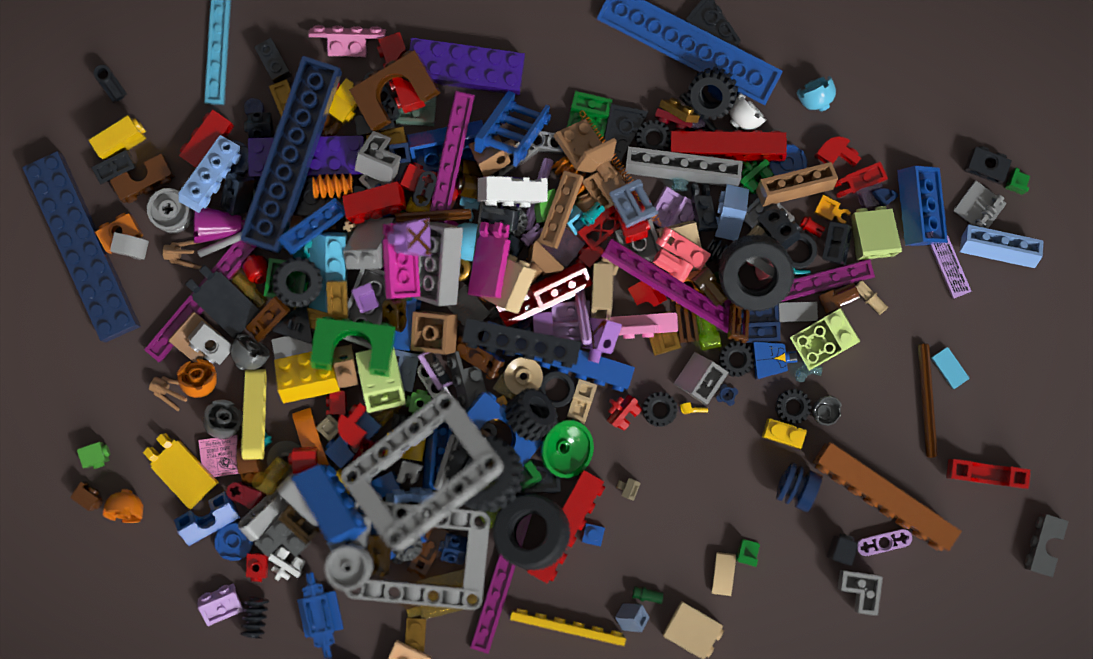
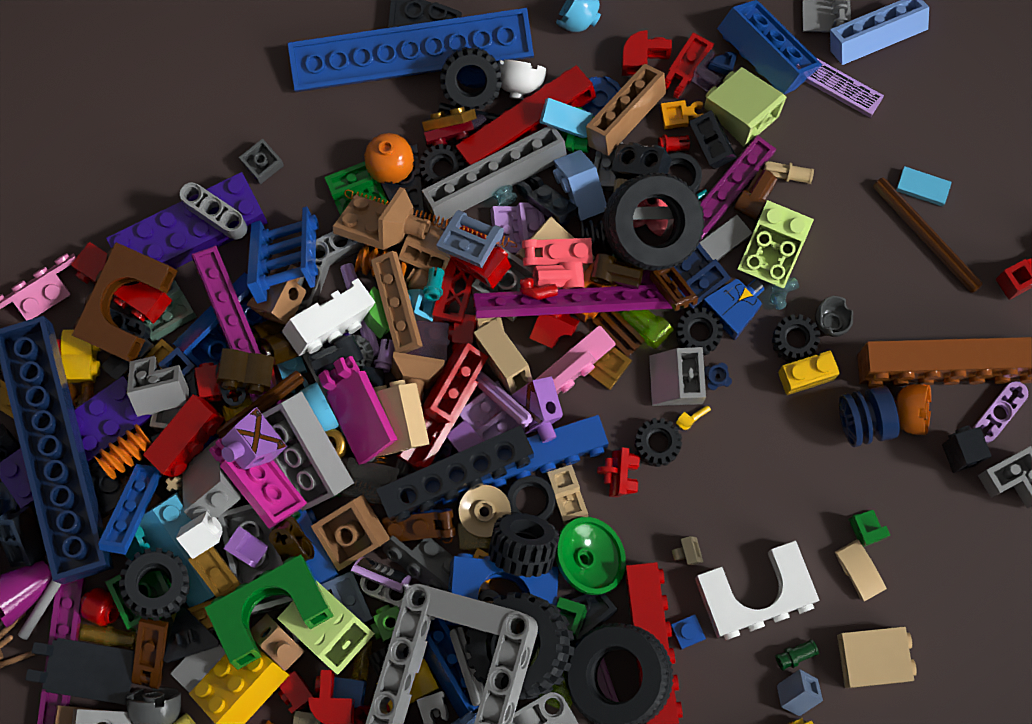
camera: 30 degrees left, 10 degrees down
(343, 272) = (200, 534): none -> white brick
(438, 189) = (245, 371): none -> dark brown brick
(488, 60) = (205, 203): none -> light grey beam
(542, 52) = (261, 161): none -> dark grey piece
(623, 109) = (389, 158): none -> orange cylinder
(649, 265) = (542, 292): none -> red arm
(673, 558) = (794, 593): none -> white arch
(752, 163) = (565, 117): none -> medium azure tile
(830, 501) = (913, 408): none -> orange cylinder

